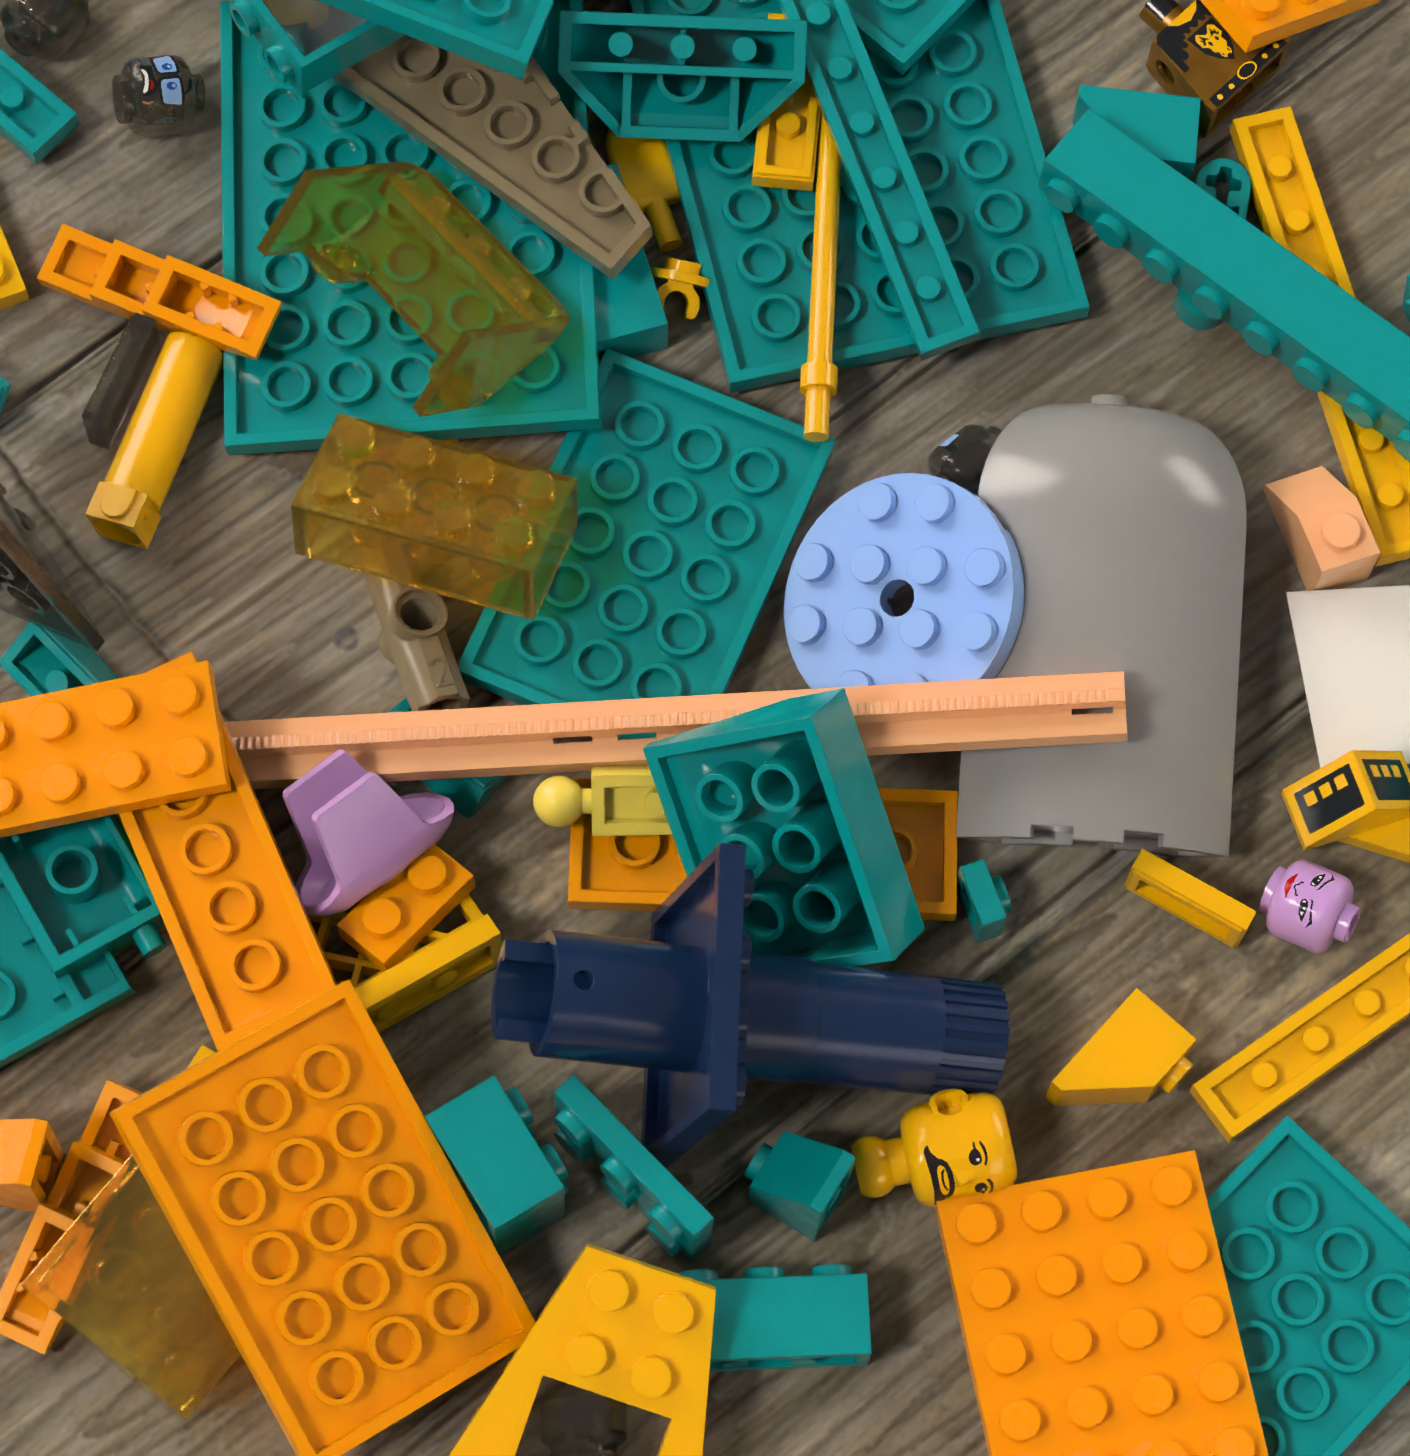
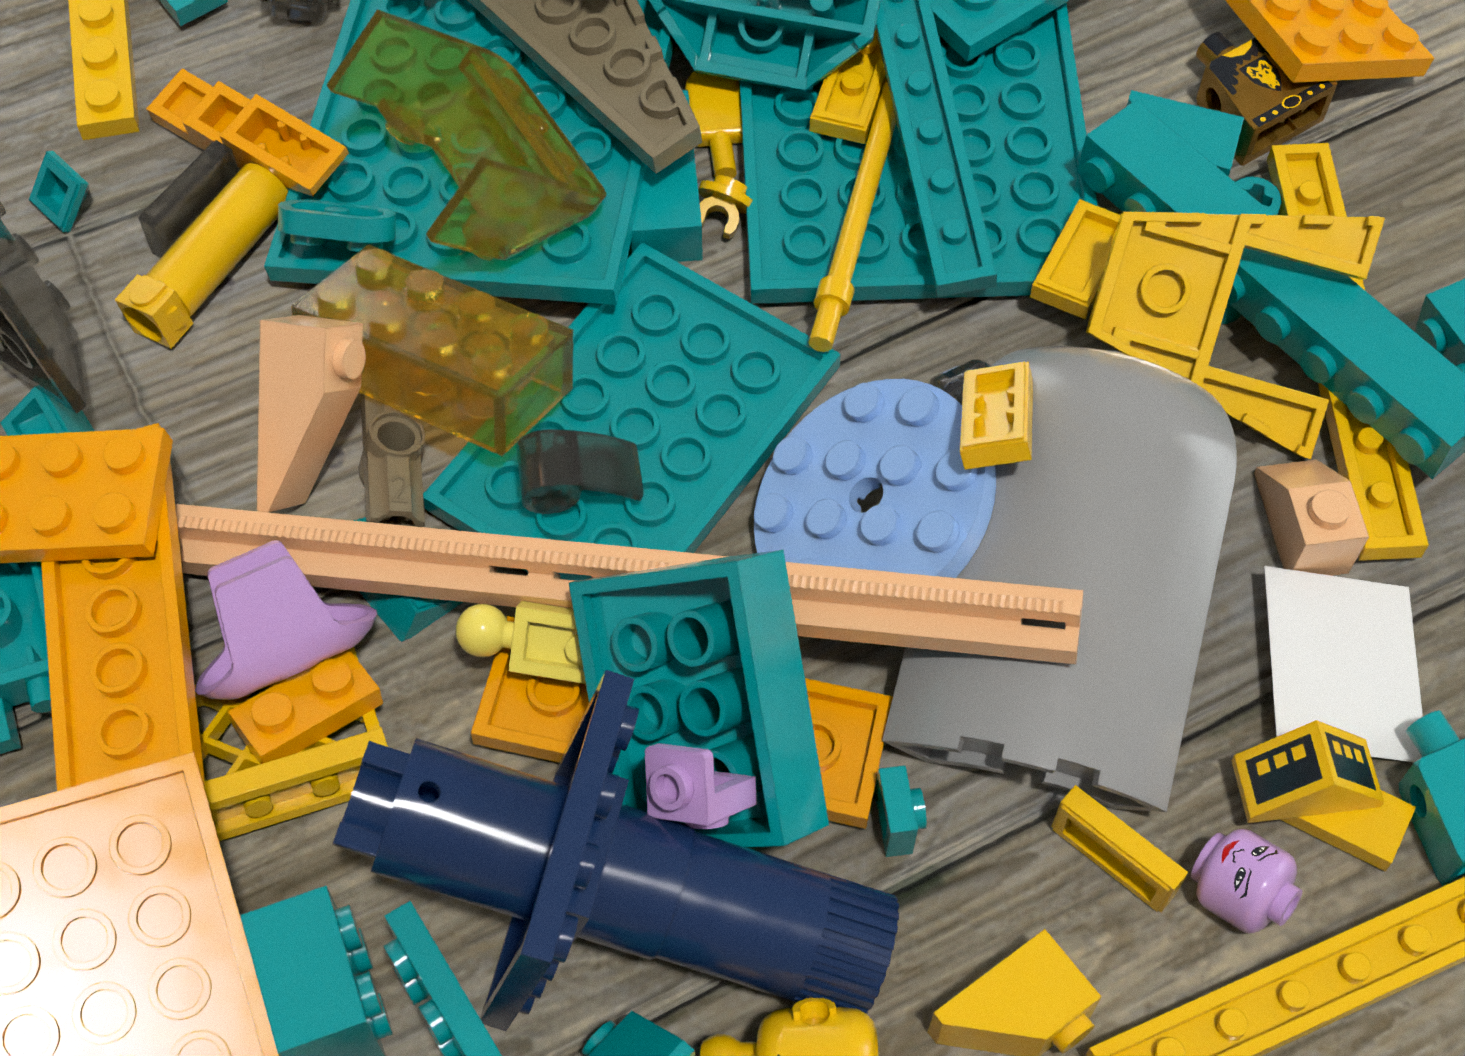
camera: 15 degrees right, 10 degrees down
(296, 390) = (317, 220): none -> teal plate
(328, 583) = (305, 392): none -> light nougat slope
(598, 615) = (564, 462): none -> clear smoke panel
(805, 926) = (688, 790): none -> lavender bracket
(1014, 508) = (997, 415): none -> yellow plate
(1060, 290) = (1077, 260): none -> yellow tile
(1156, 321) = (1171, 289): none -> yellow wing

